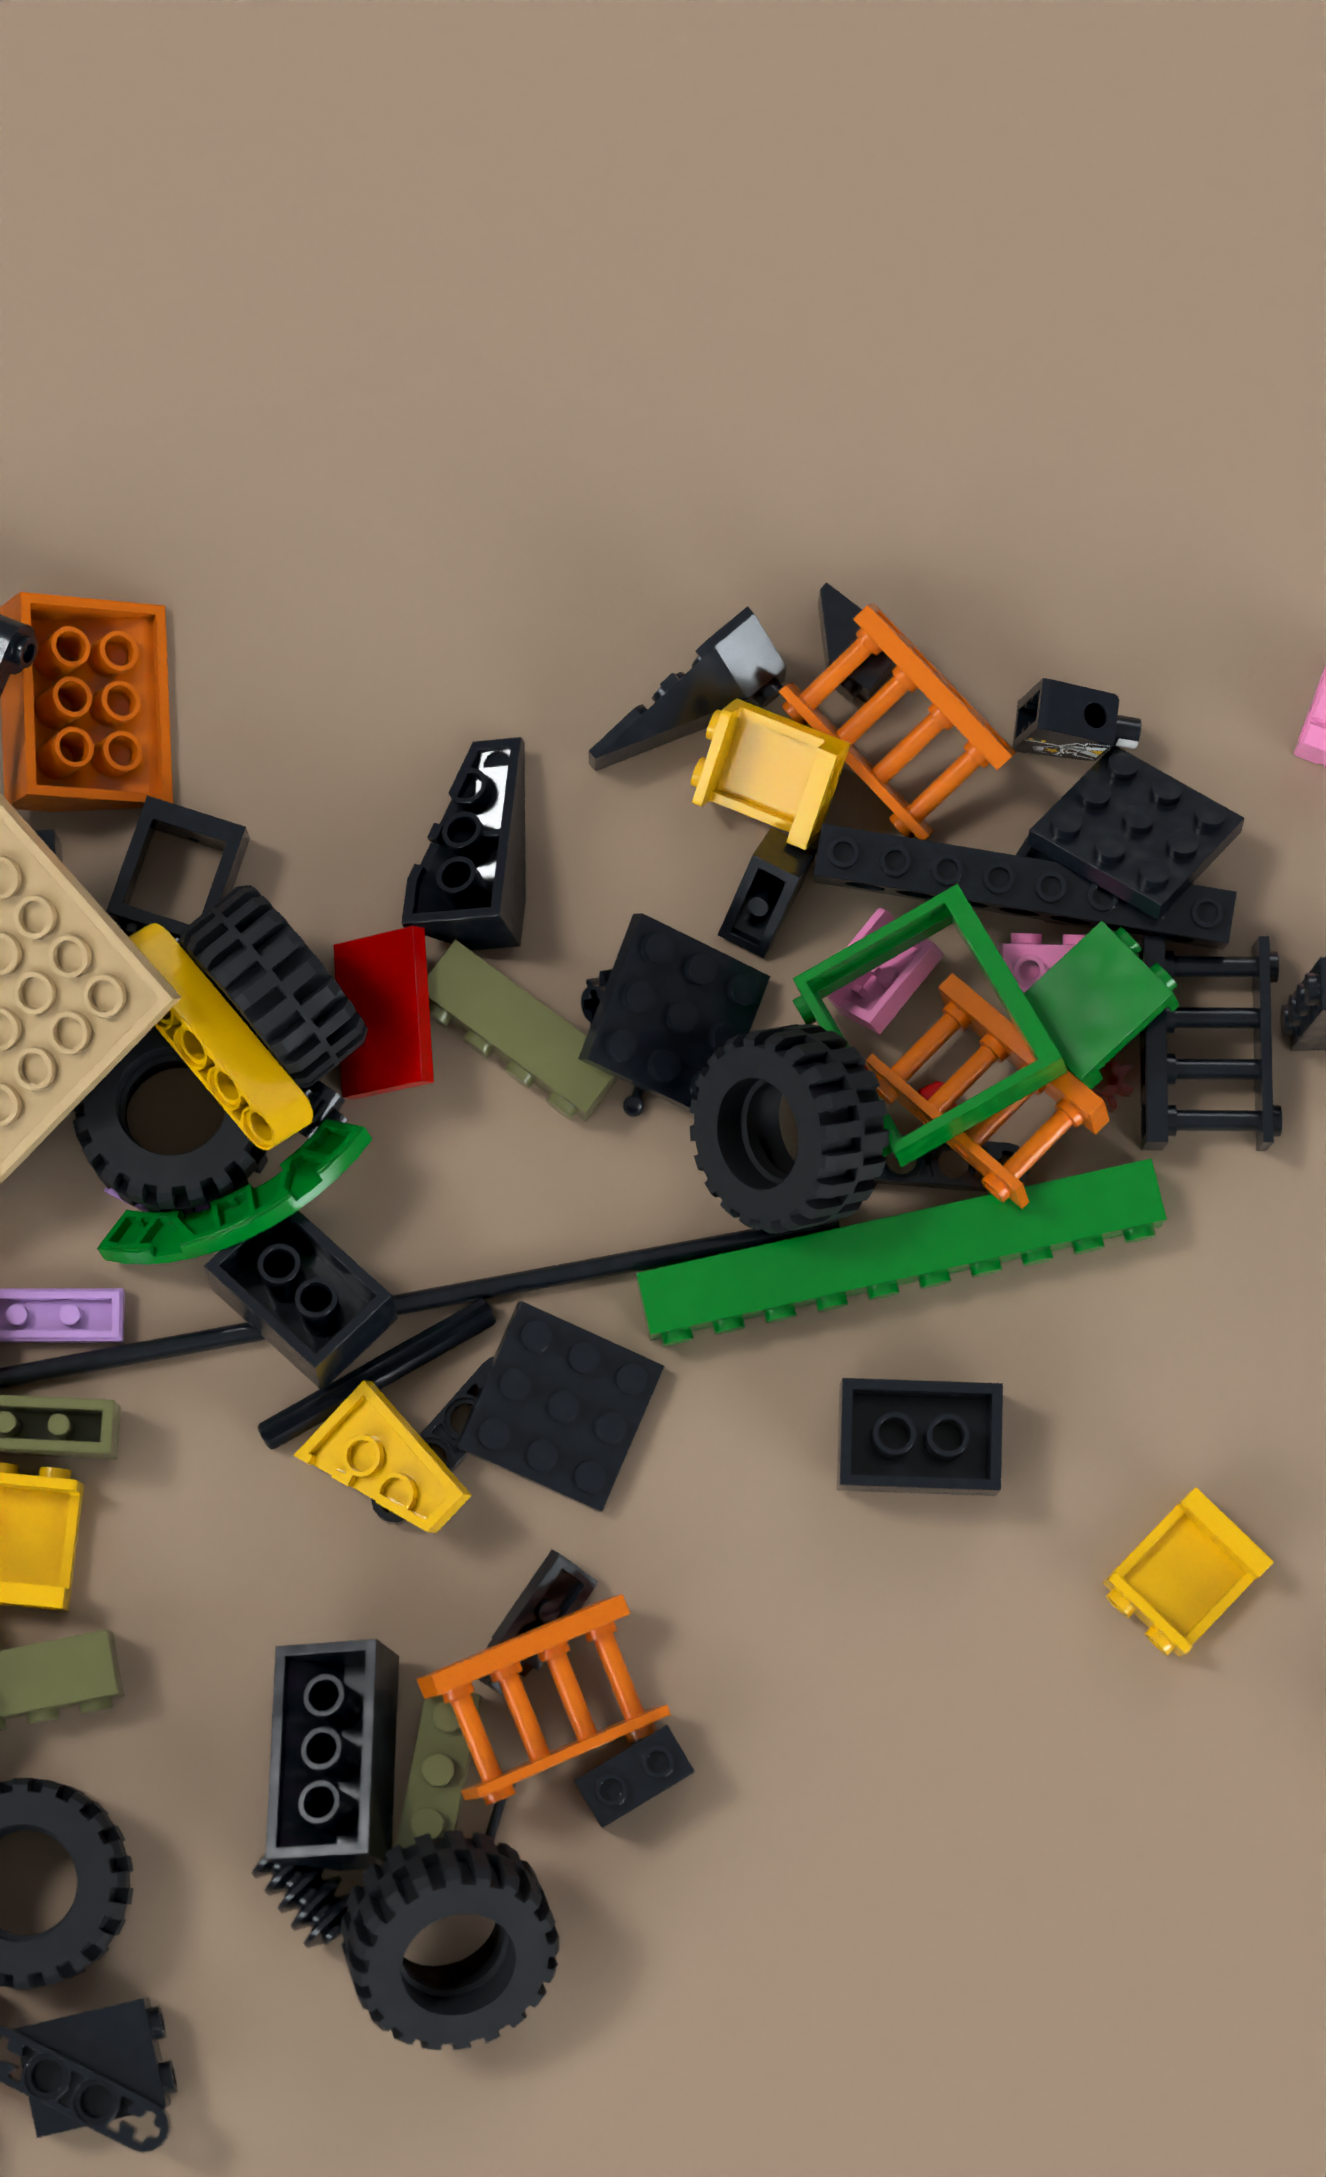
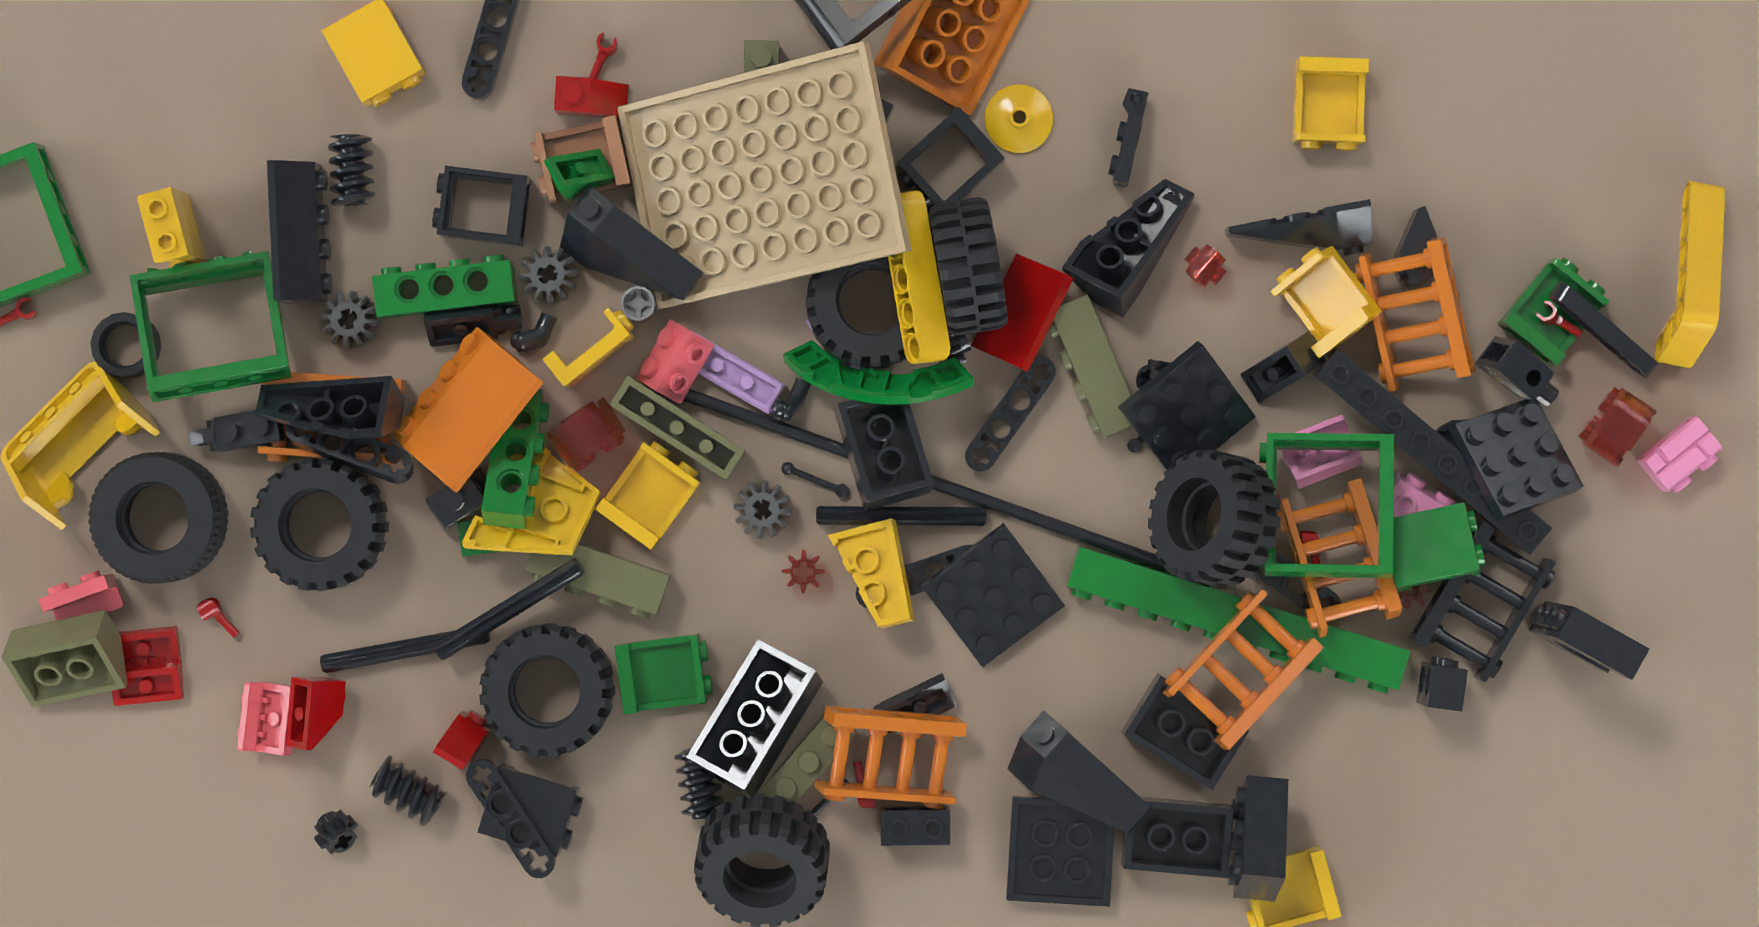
camera: 40 degrees right, 10 degrees up
(149, 1303) = (794, 402): none -> black arm
(174, 1771) = (662, 673): none -> green panel
(198, 1457) = (774, 507): none -> dark grey gear
(242, 797) = (1014, 136): none -> yellow dish
(272, 1518) = (796, 577): none -> clear red gear
(278, 1387) = (788, 468): none -> black hinge
(392, 710) = (1128, 134): none -> black hinge
(449, 1157) = (1008, 412): none -> black beam
(546, 1782) = (863, 802): none -> red hand
(589, 819) = (1205, 265): none -> clear red gear
(627, 525) = (1329, 102): none -> yellow panel
(791, 1581) = (1065, 771): none -> black wedge
(850, 1697) = (1058, 854): none -> black plate
(992, 1583) = (1181, 838): none -> black brick
(994, 1290) = (1276, 677): none -> orange fence
(1072, 621) = (1521, 321): none -> green panel
(1082, 632) = (1558, 320): none -> red hand
(1100, 1517) = (1259, 838): none -> black brick
(1148, 610) = (1603, 329): none -> black beam
(1219, 1178) = (1442, 684): none -> black brick
(1229, 478) = (1698, 276): none -> yellow beam
(1242, 719) = (1618, 427): none -> clear red brick

